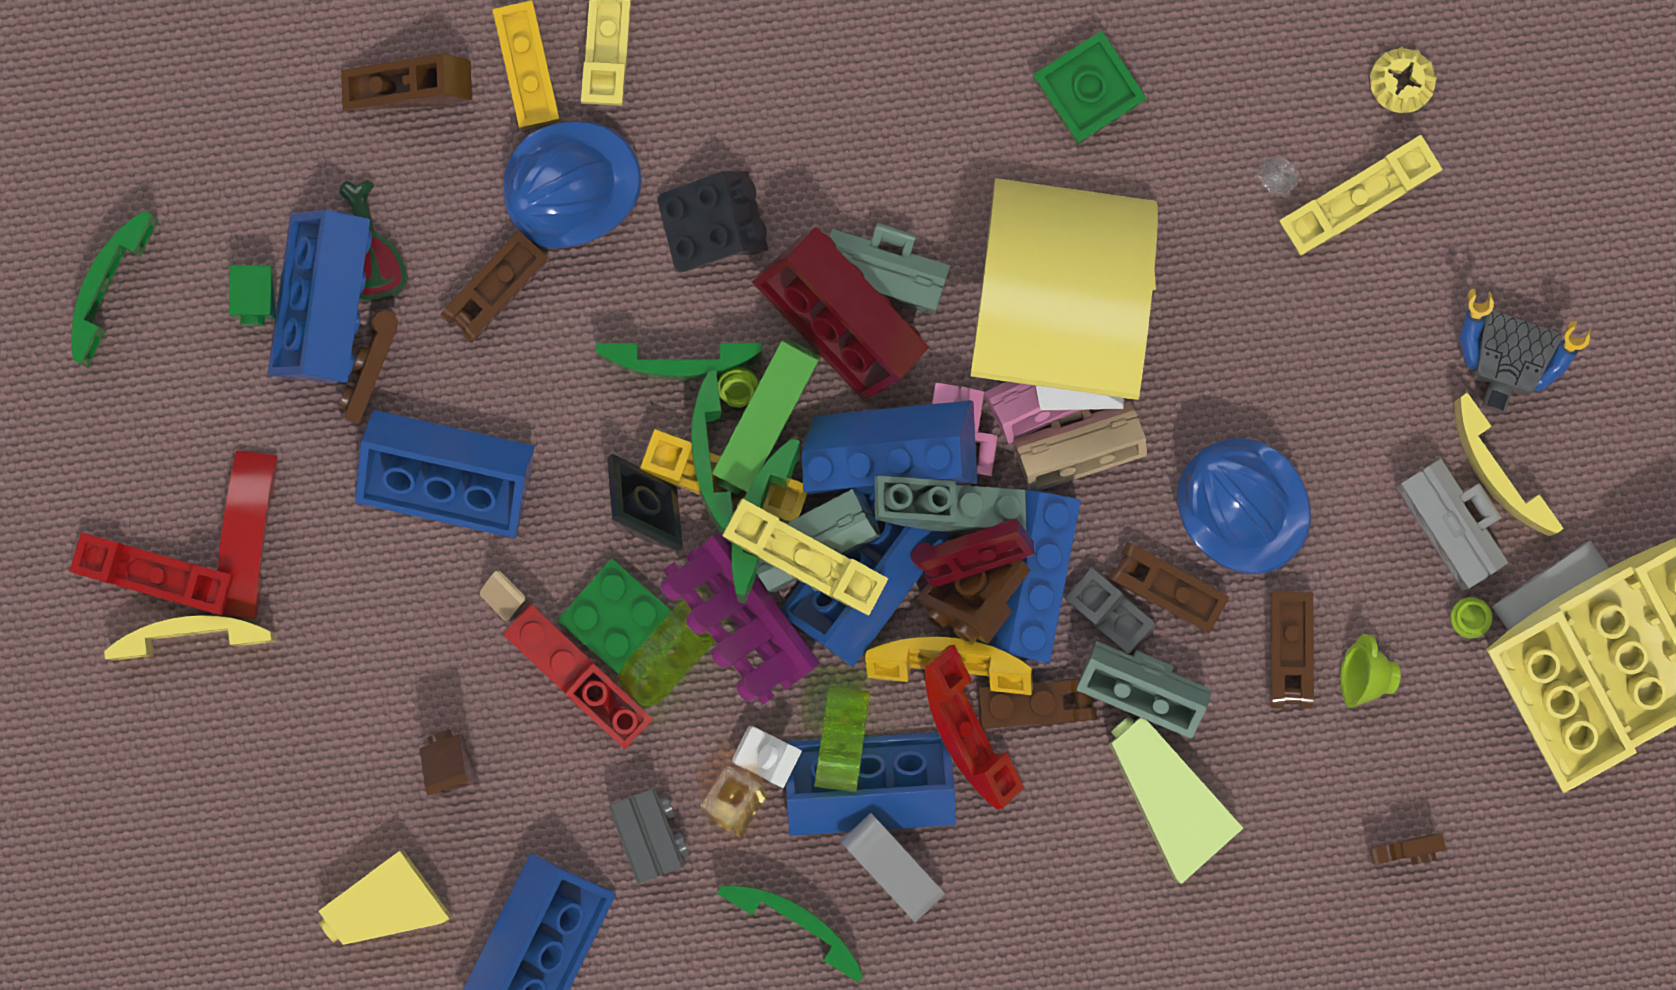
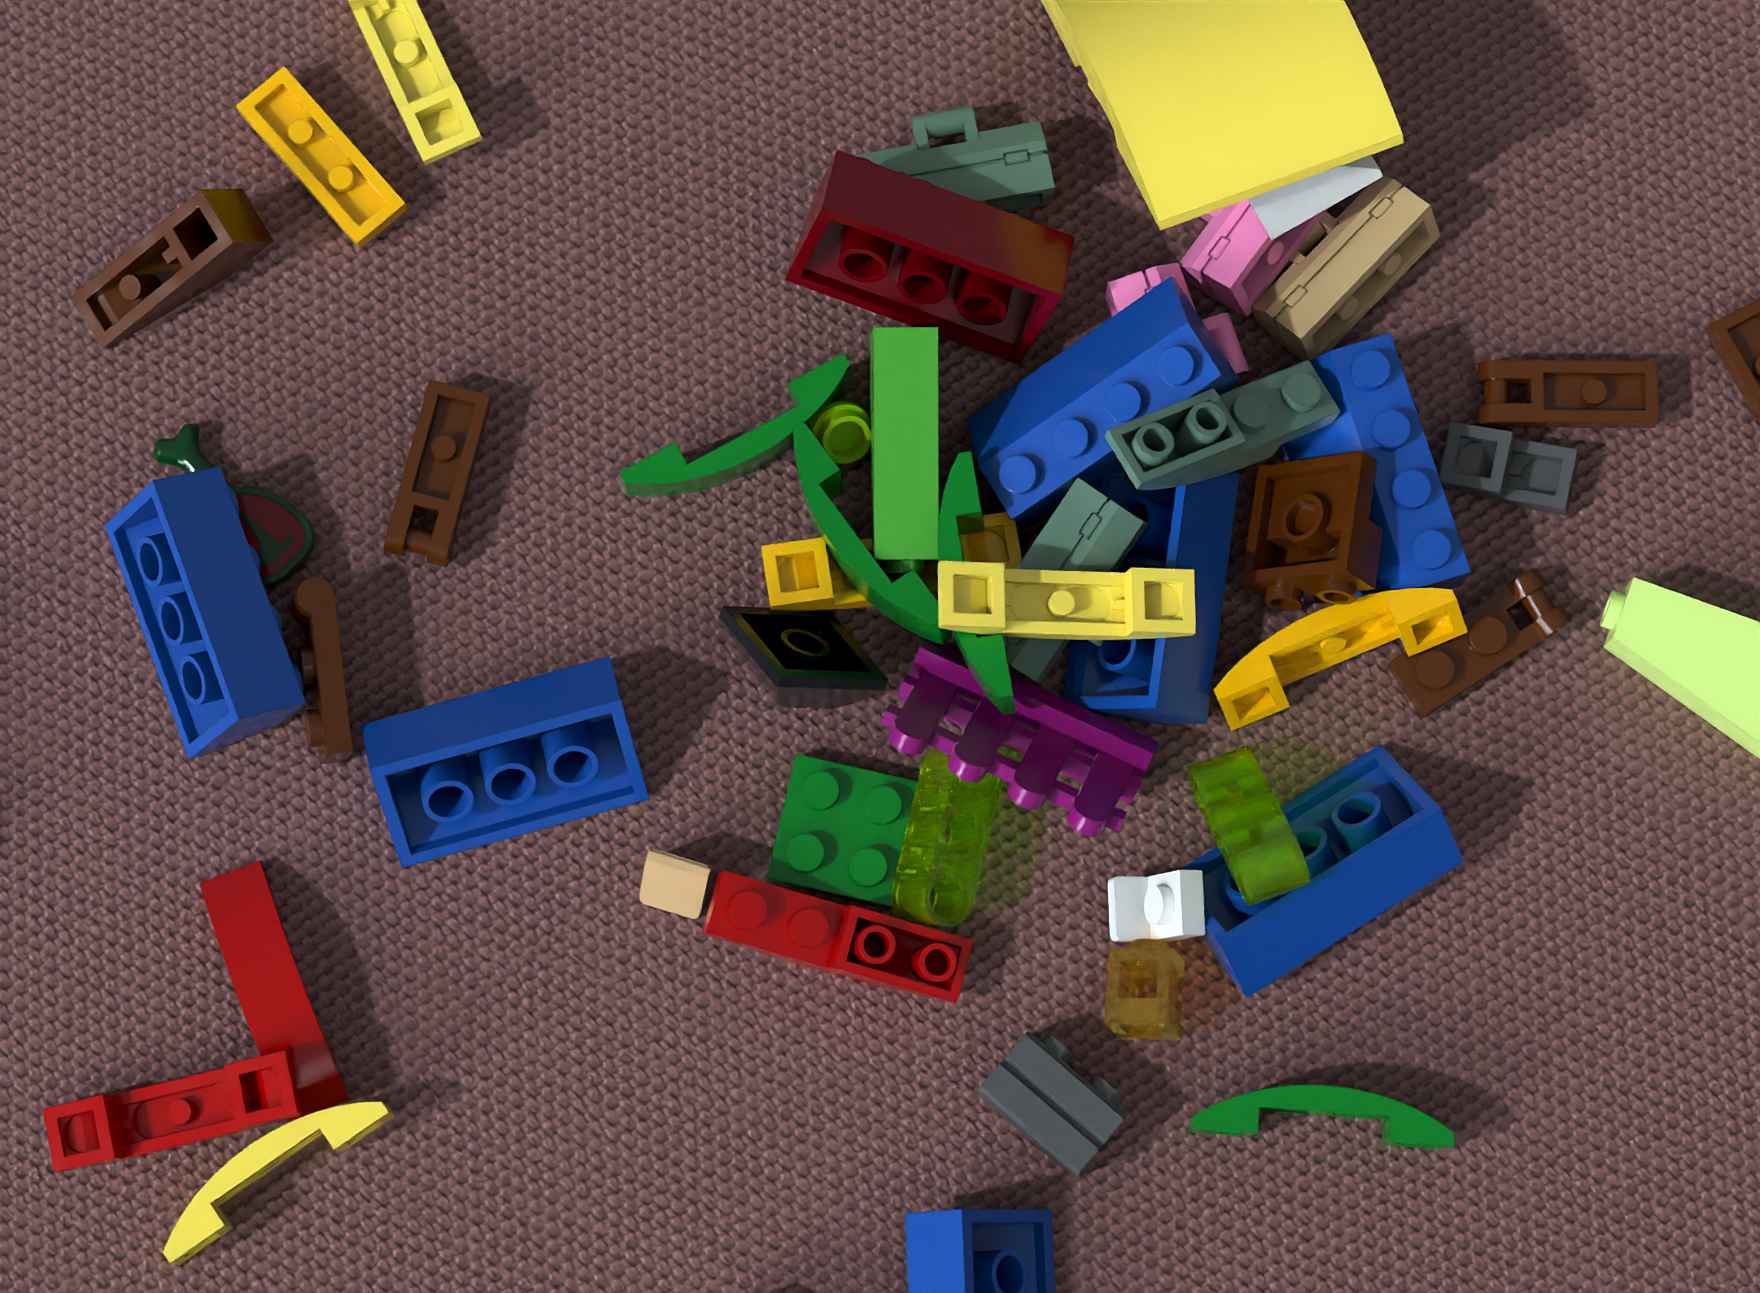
camera: 25 degrees left, 5 degrees down
(252, 294) = (110, 657): green brick -> none
(446, 763) = (724, 1150): reddish brown slope -> none
(571, 184) = (467, 281): blue piece -> none
(712, 220) = (685, 230): black bracket -> none
(892, 867) = (1412, 964): light grey beam -> none
(962, 734) = (1466, 769): red slope -> none
(973, 553) = (1287, 478): dark red plate -> none
(1144, 688) = (1615, 540): sand green piece -> none
(1244, 506) = (1608, 229): blue piece -> none

